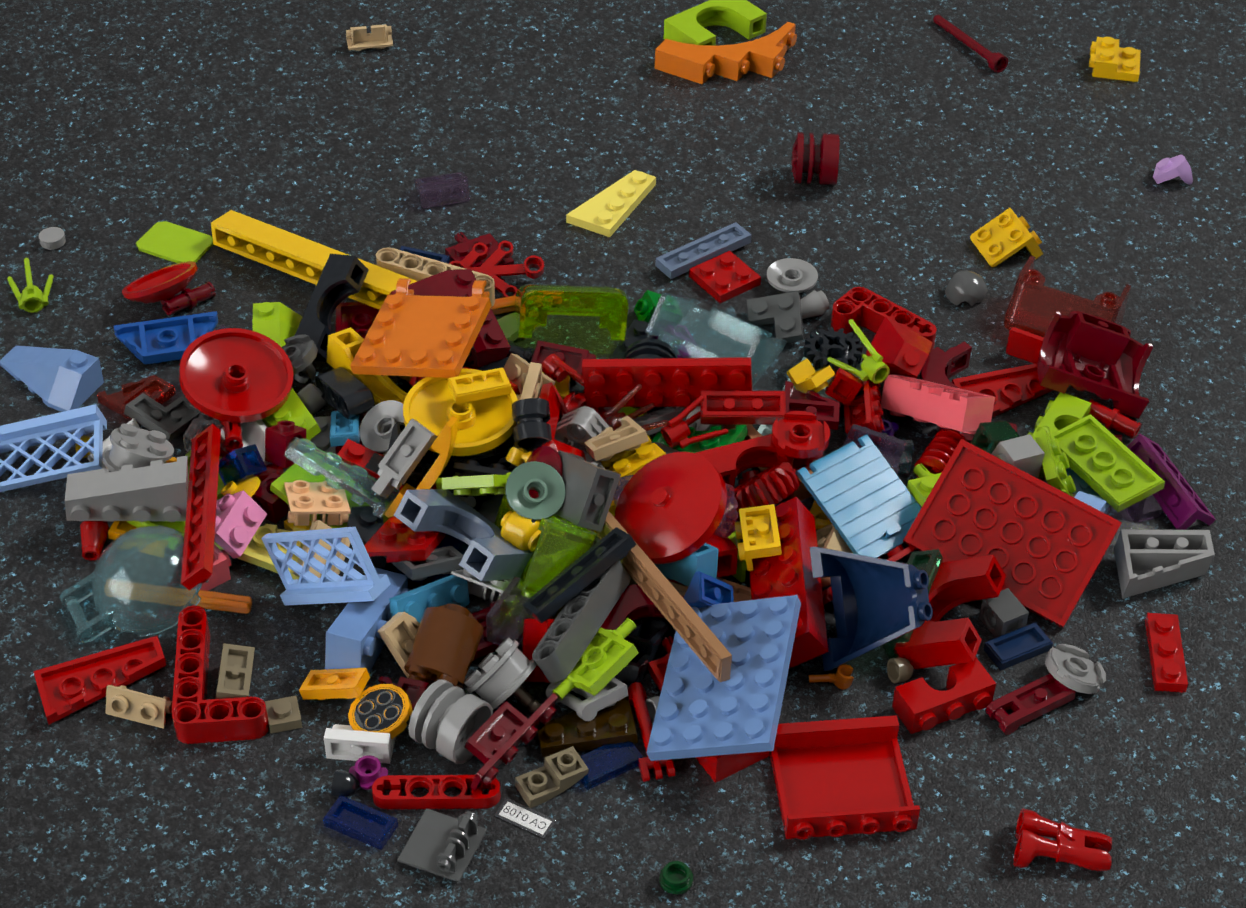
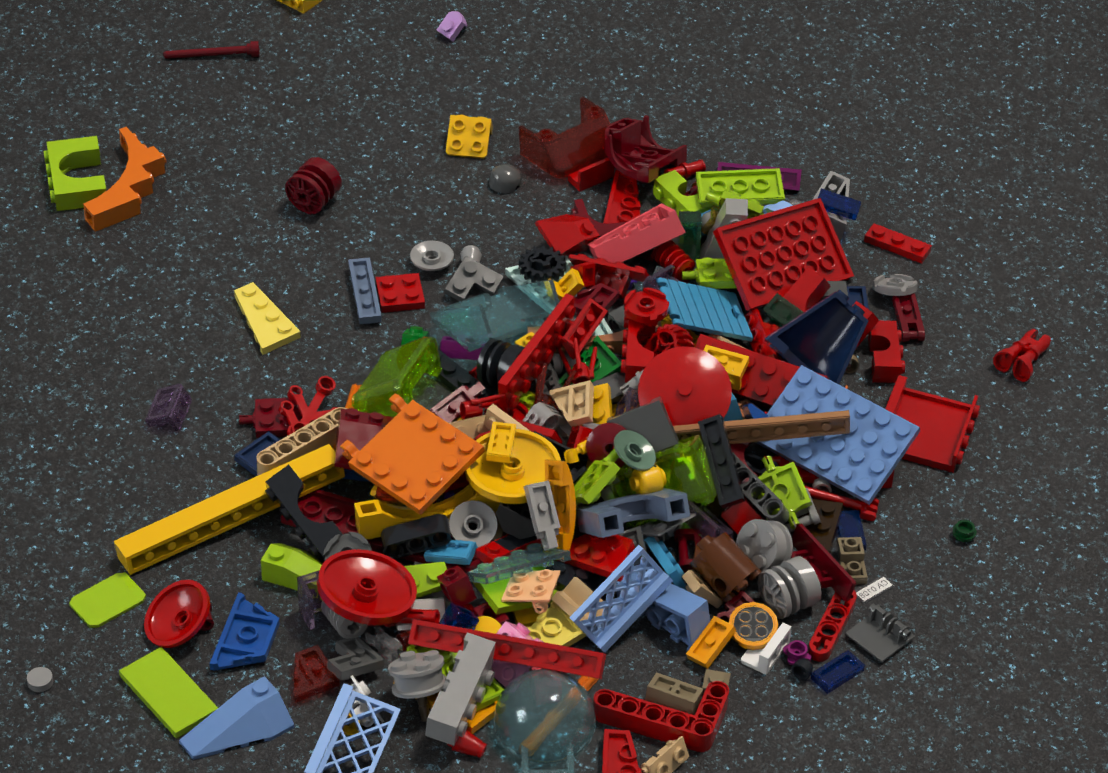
camera: 65 degrees left, 0 degrees up
(31, 298) = (123, 710): lime plant -> none
(73, 316) = (168, 692): none -> lime tile
(531, 421) = (560, 430): black wheel -> none
(869, 311) = (510, 230): red beam -> none
(872, 366) = (588, 249): lime plant -> none
(1150, 555) = (840, 204): none -> clear blue tile

